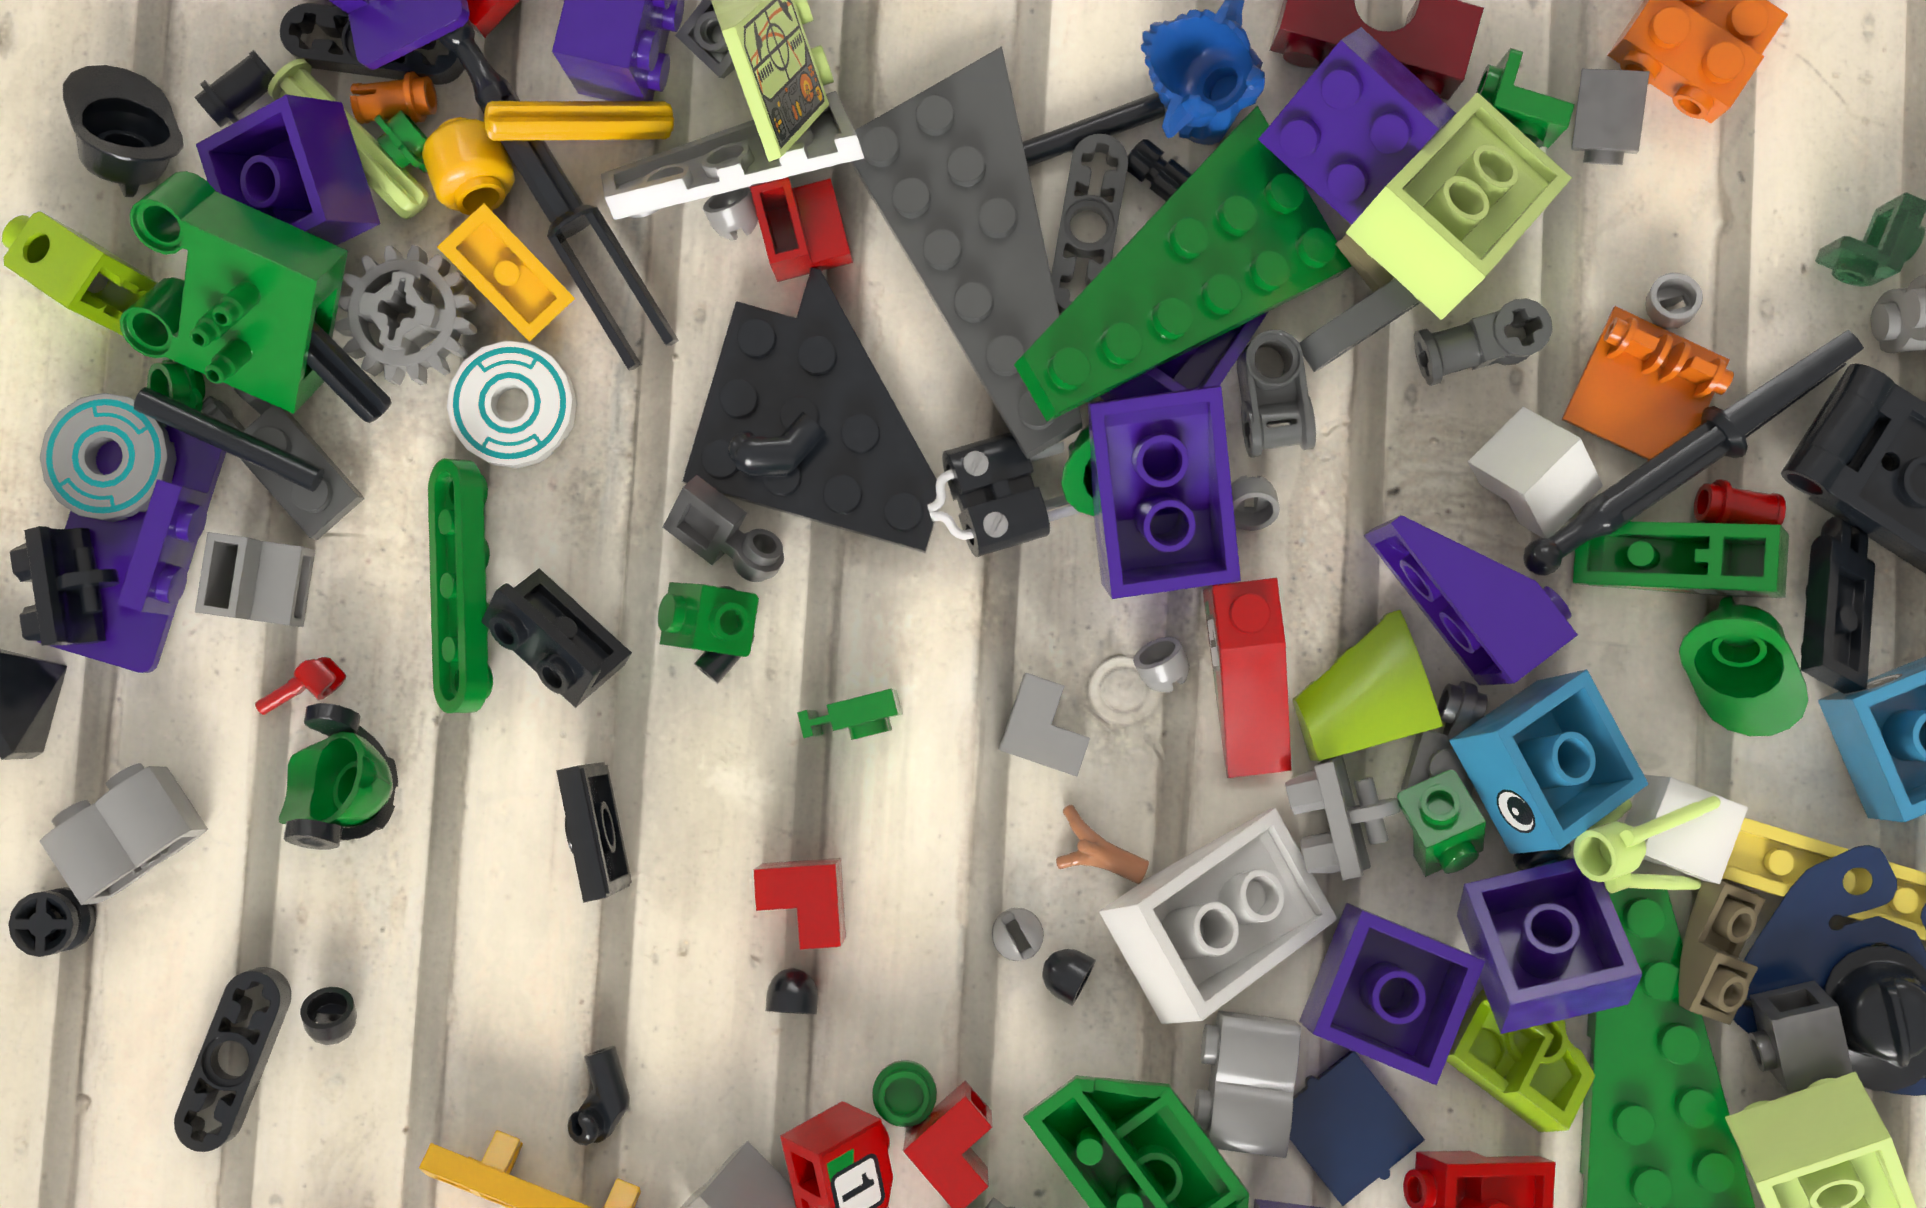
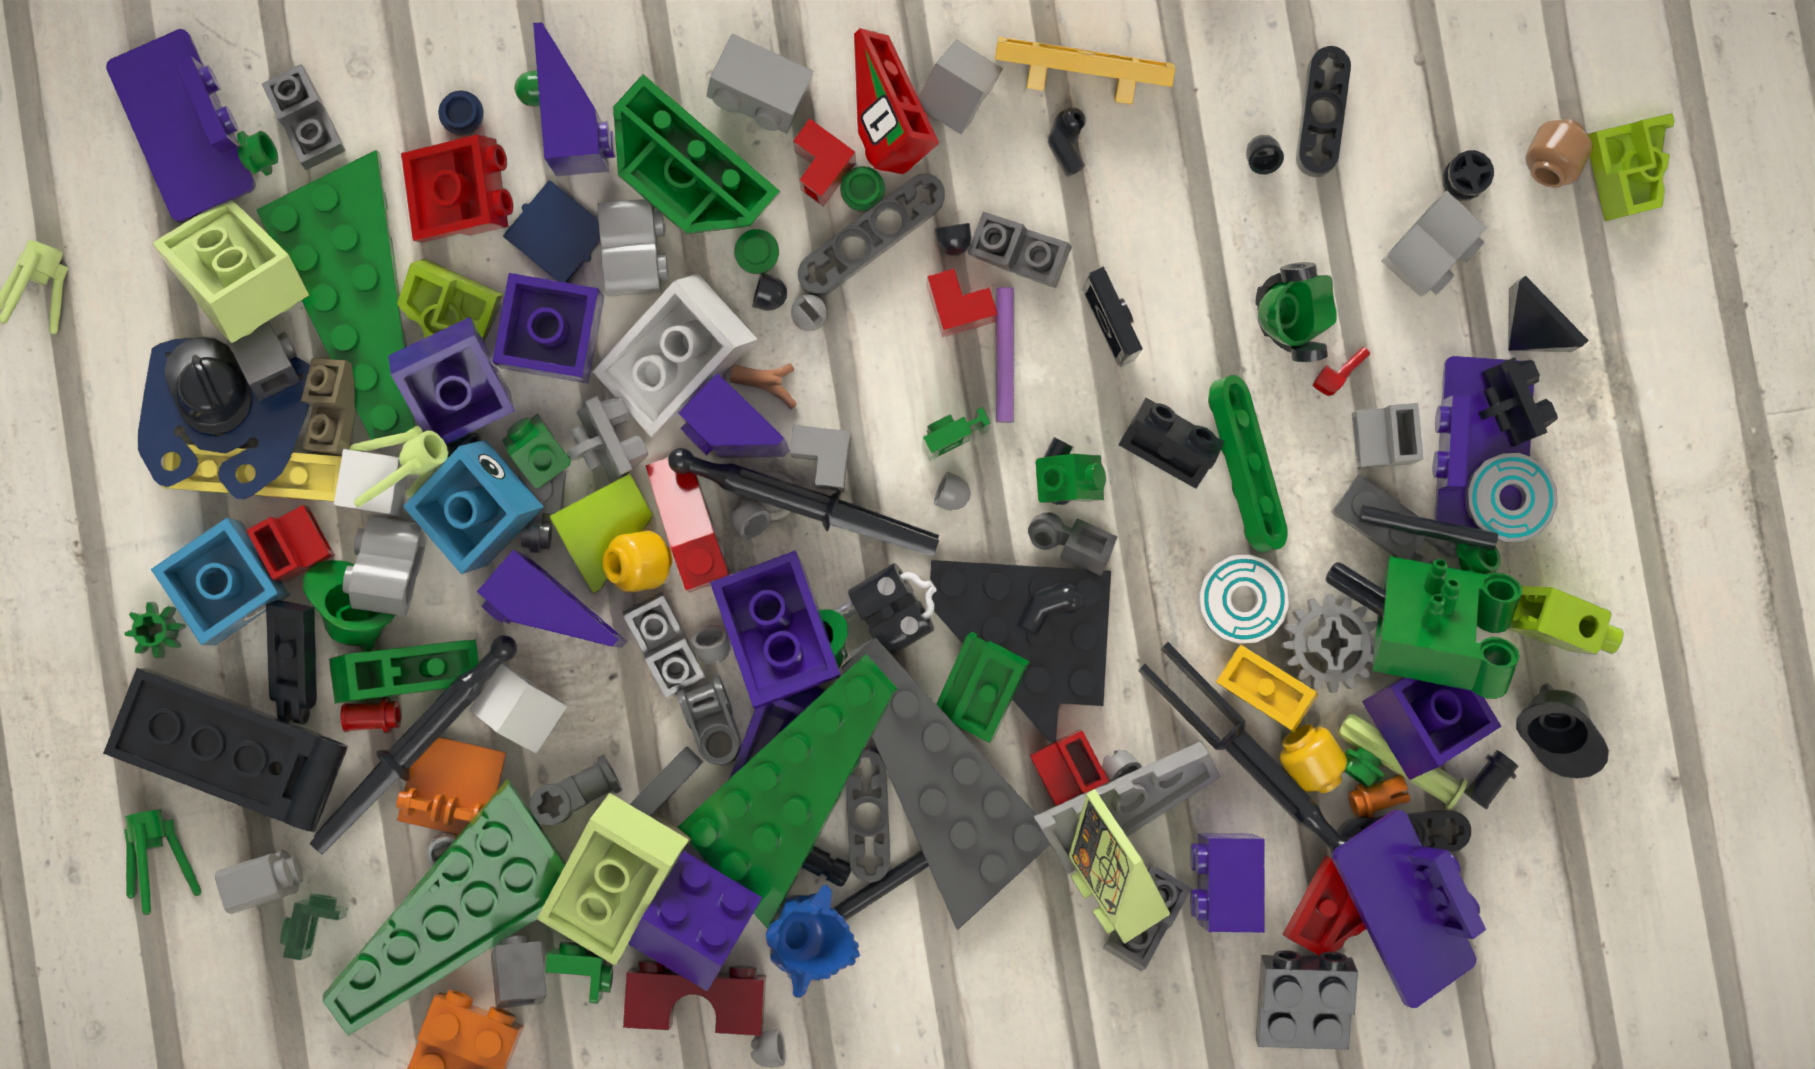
camera: 160 degrees right, 0 degrees up
(578, 120) = (1241, 806): yellow axle -> none
(704, 957) = (1019, 249): none -> flat silver slope
(759, 813) = (1005, 355): none -> medium lavender bar
(875, 637) = (952, 492): none -> light grey hinge
(895, 360) = (981, 686): none -> green plate
(911, 1033) = (867, 230): none -> dark grey beam
(1051, 650) = (806, 502): none -> black piece
(1072, 1037) = (756, 251): none -> green plate
(1171, 799) = (729, 425): none -> dark purple slope
(1316, 518) = (663, 644): none -> flat silver slope
(1332, 636) = (637, 561): none -> yellow head
(1655, 227) = (466, 903): none -> wing
(1686, 705) = (385, 565): none -> light grey brick
(1811, 769) = (290, 543): none -> red piece

